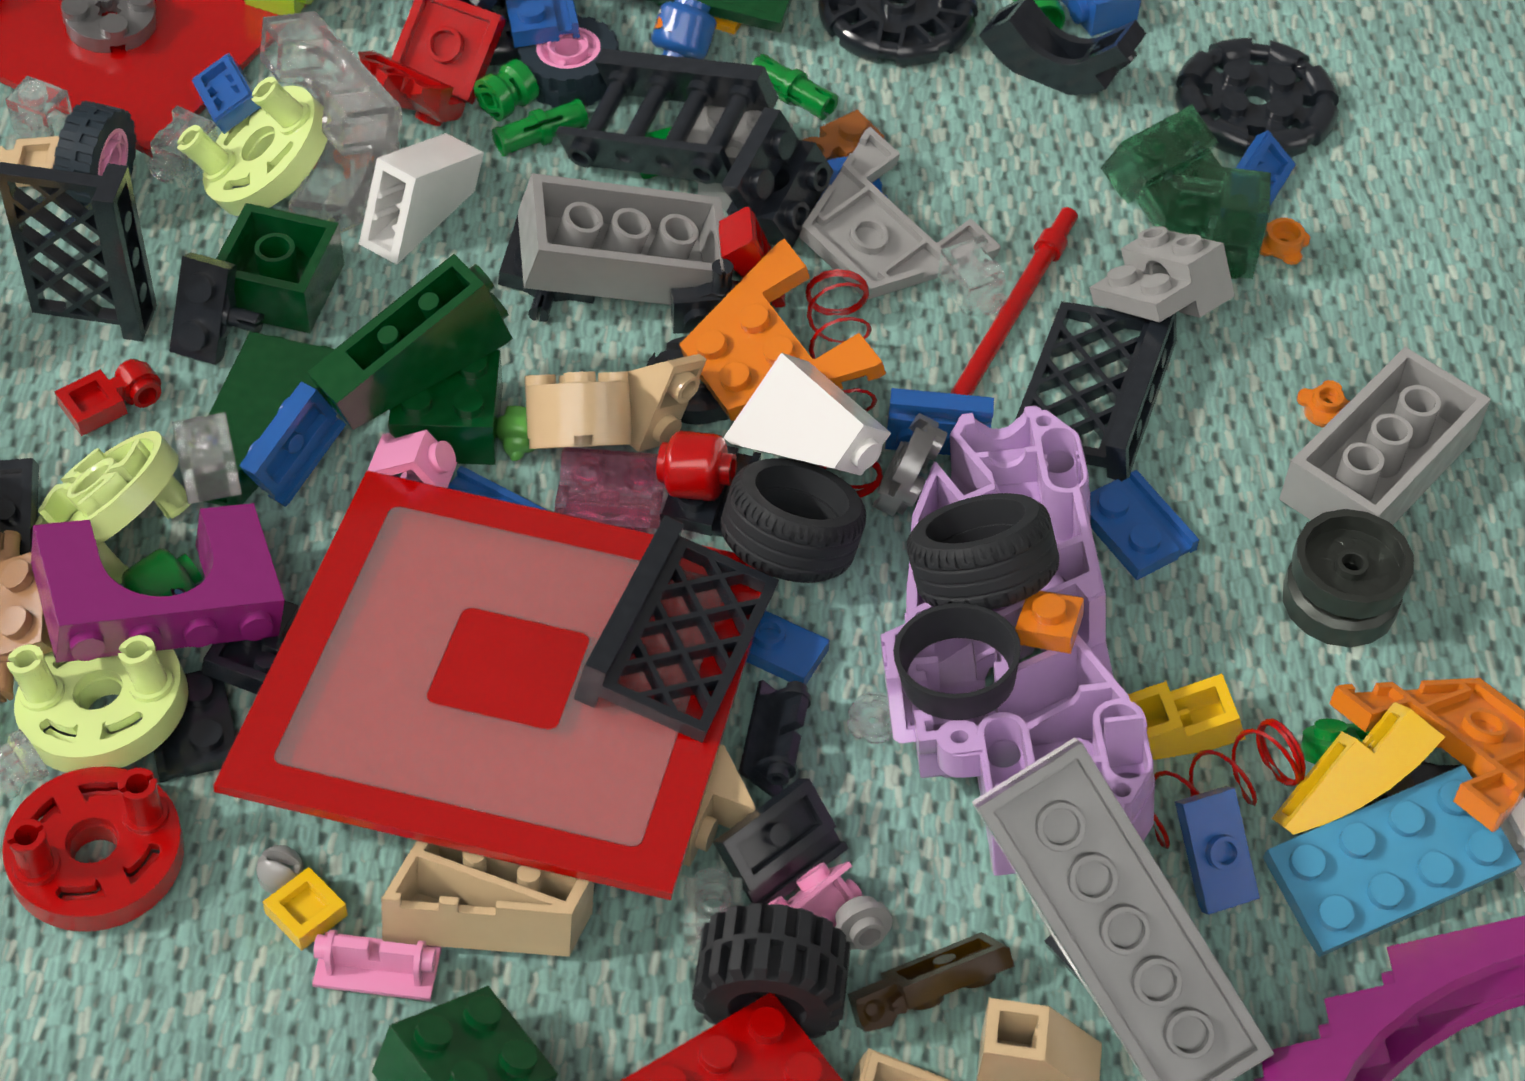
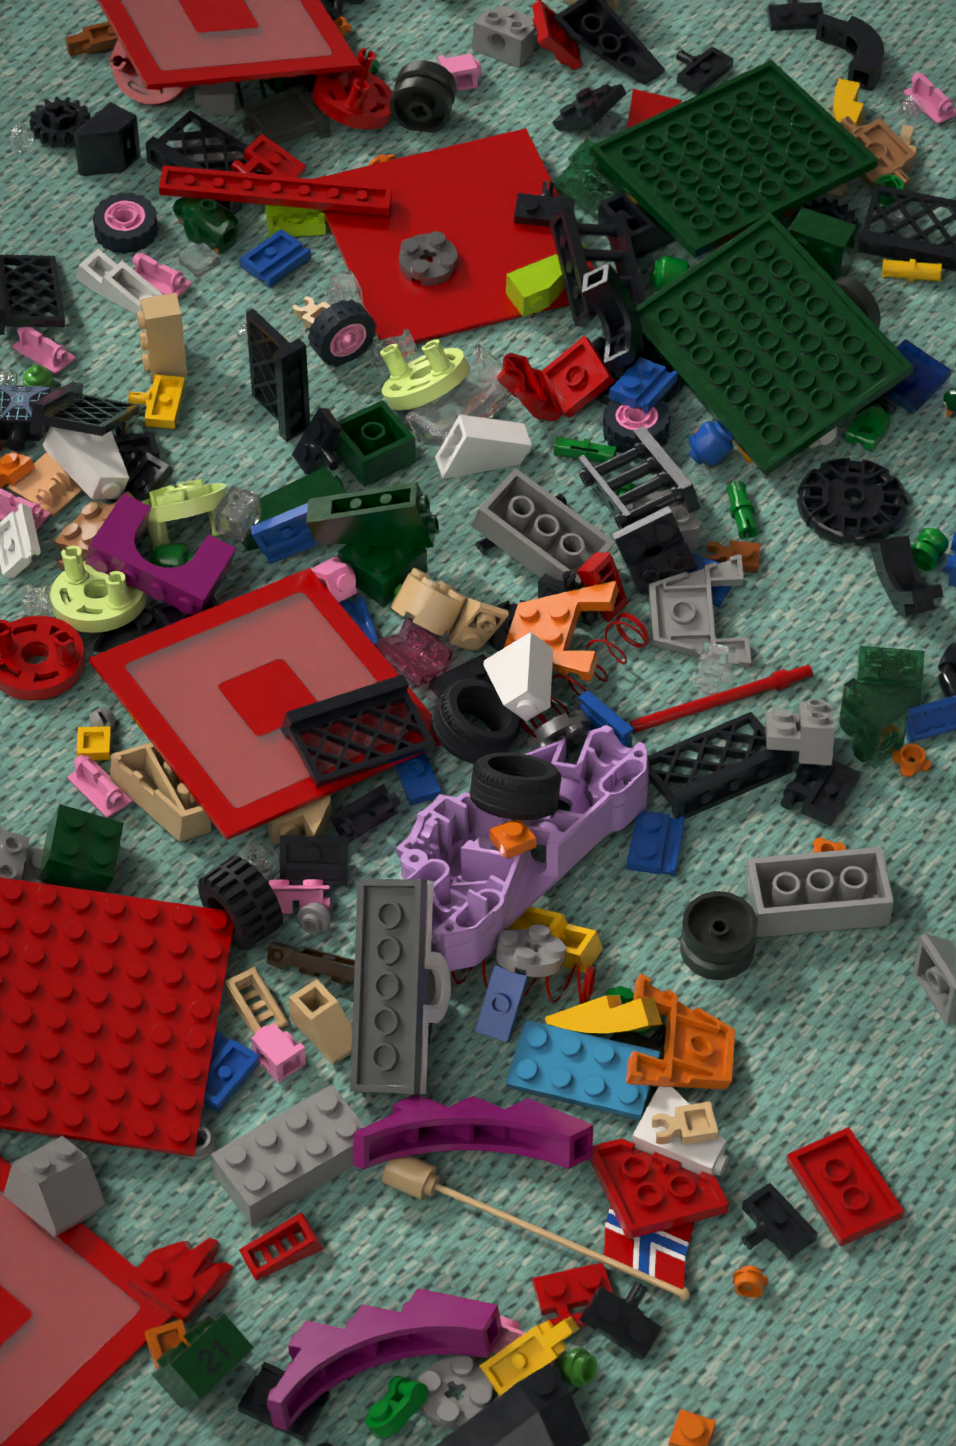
camera: 45 degrees right, 0 degrees up
(98, 401) = (233, 457): red plate -> none
(226, 93) = (443, 329): blue plate -> none
(357, 108) = (471, 380): clear arch -> none
(506, 90) = (579, 420): green wheel -> none
(695, 465) = (456, 662): red head -> none
(952, 622) = (446, 803): black tyre -> none
(1225, 748) = (531, 951): none -> light grey plate
(1250, 338) = (828, 794): none -> black plate

